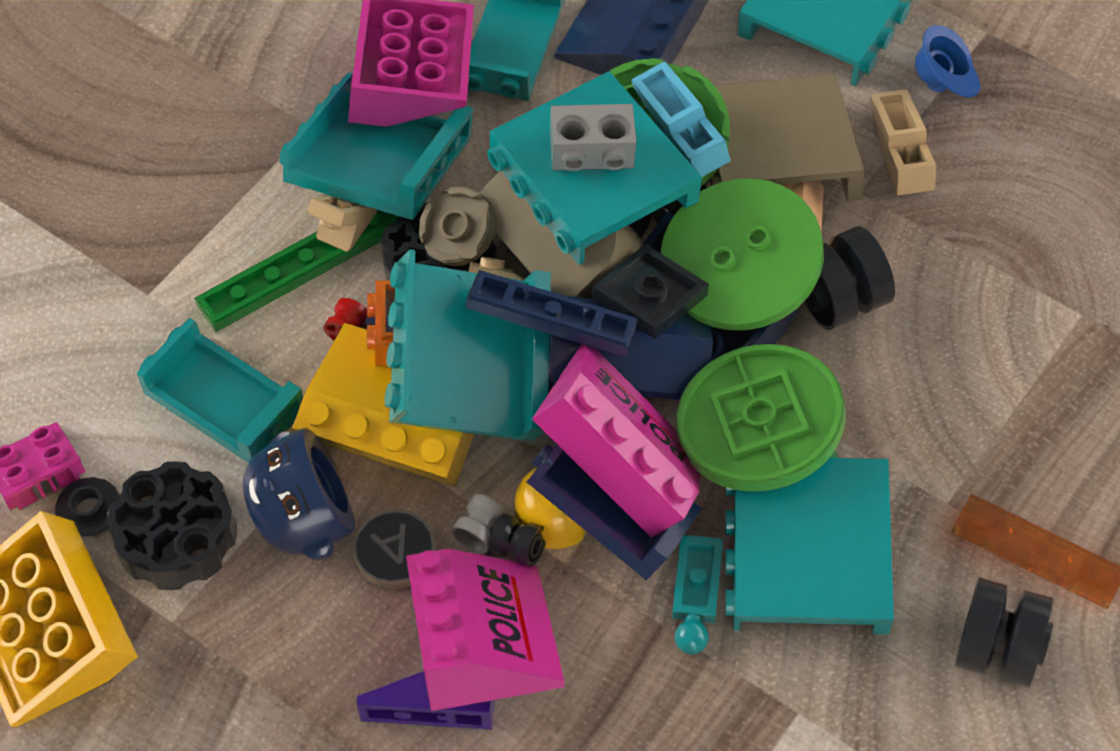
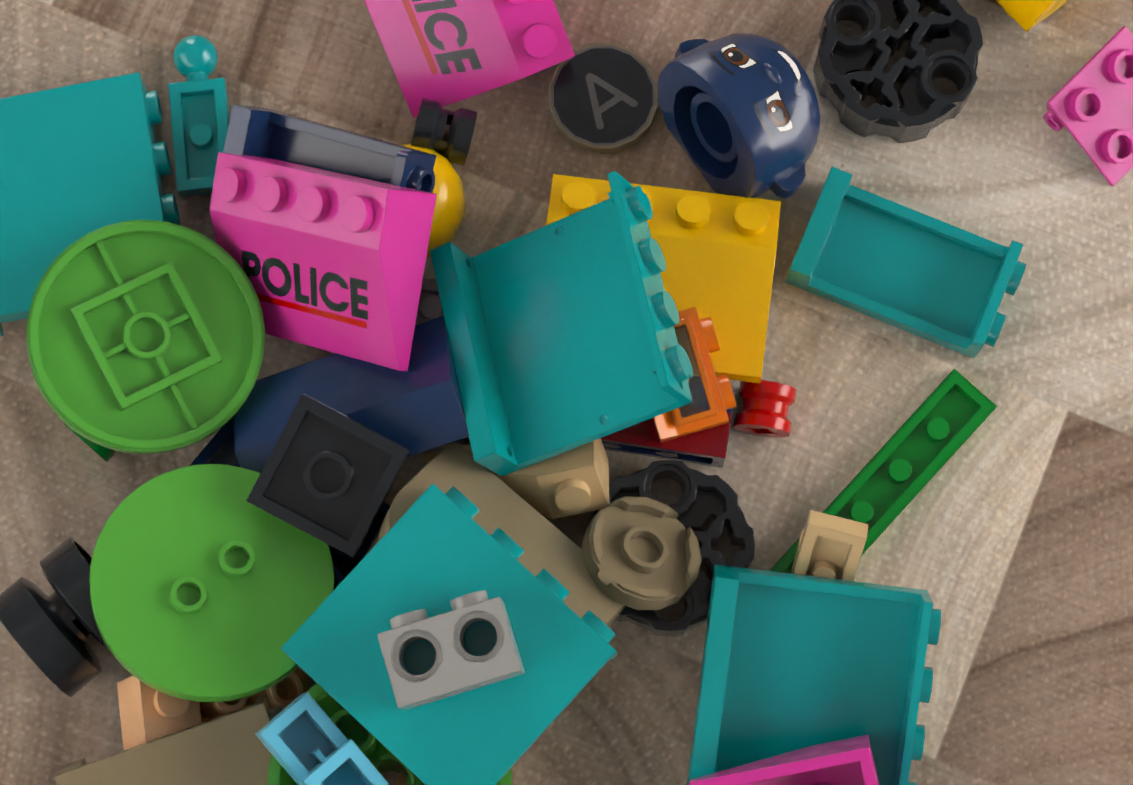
camera: 165 degrees right, 20 degrees up
(89, 522) = (1009, 92): black piece -> none
(477, 526) = (498, 150): light grey wheel -> none
(551, 313) = (454, 383): dark blue plate -> none

